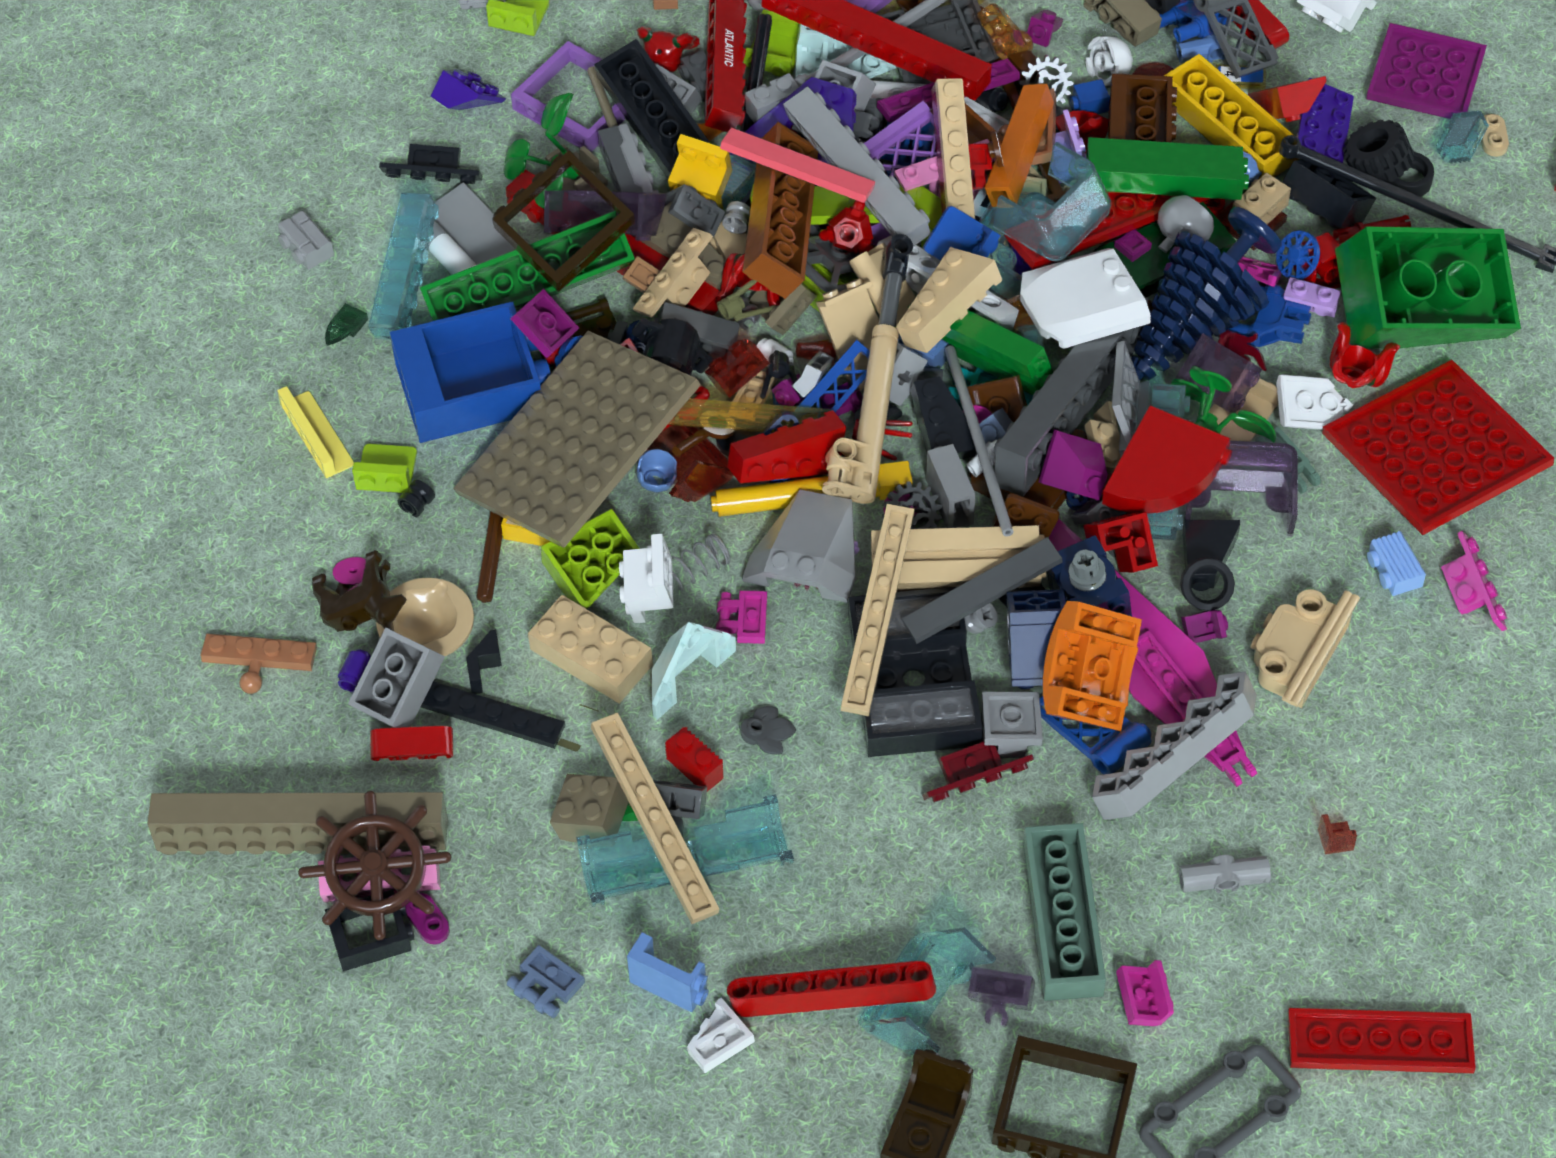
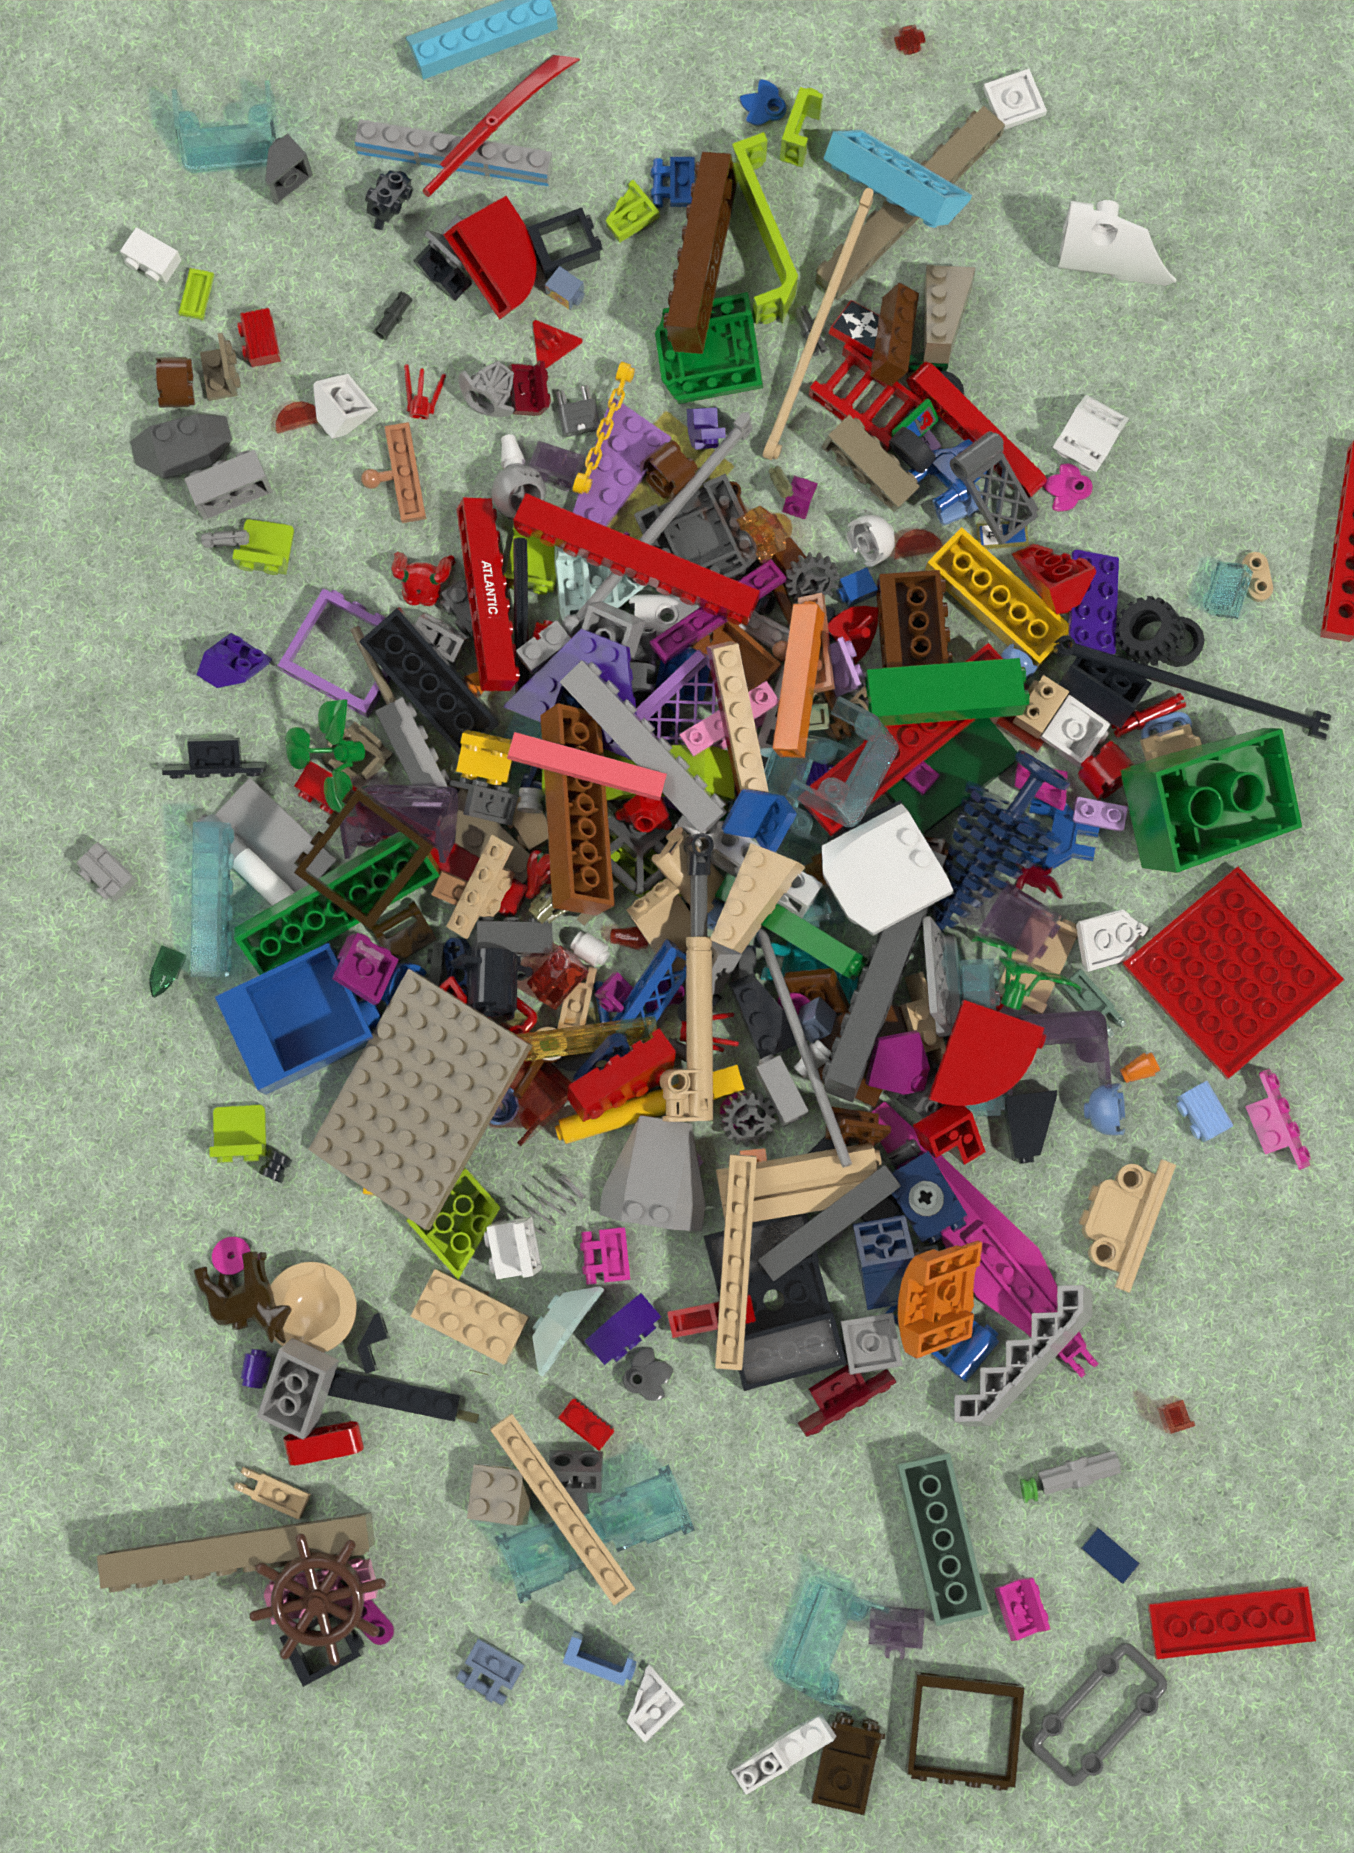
camera: 10 degrees left, 25 degrees up
(257, 654) = (159, 1359): nougat plate -> none
(315, 432) = (163, 1099): light yellow panel -> none
(343, 779) = (275, 1493): none -> tan hinge
(490, 559) = (358, 1226): reddish brown axle -> none
(745, 673) = (623, 1330): none -> dark purple brick
(778, 368) = (598, 974): black plant -> none
(813, 373) = (632, 979): light grey piece -> none
(831, 675) = (701, 1318): none -> red slope
(832, 989) = (734, 1655): red beam -> none
(857, 1101) = (783, 1753): none -> white slope
(979, 163) = (764, 716): red plate -> none
(994, 148) = (777, 706): reddish brown piece -> none
(1026, 9) = (780, 482): none -> olive axle
(1167, 883) = (1029, 1490): none -> bright green bush
(1186, 215) = (971, 757): light grey piece -> none
(1205, 625) = (1034, 1207): magenta bracket -> none
(1219, 601) = (1028, 1154): black tyre -> none
(1250, 960) = (1110, 1555): none -> dark blue tile
(1289, 544) = (1106, 1110): none -> medium blue cylinder
(1293, 217) = (1075, 731): none -> white plate
(1298, 255) = (1084, 772): blue wheel -> none
(1310, 47) = (1064, 486): none -> dark pink plate
(1333, 519) = (1140, 1068): none -> orange cone
(1358, 365) = (1150, 887): red hair -> none
(1426, 71) = (1186, 506): magenta plate -> none

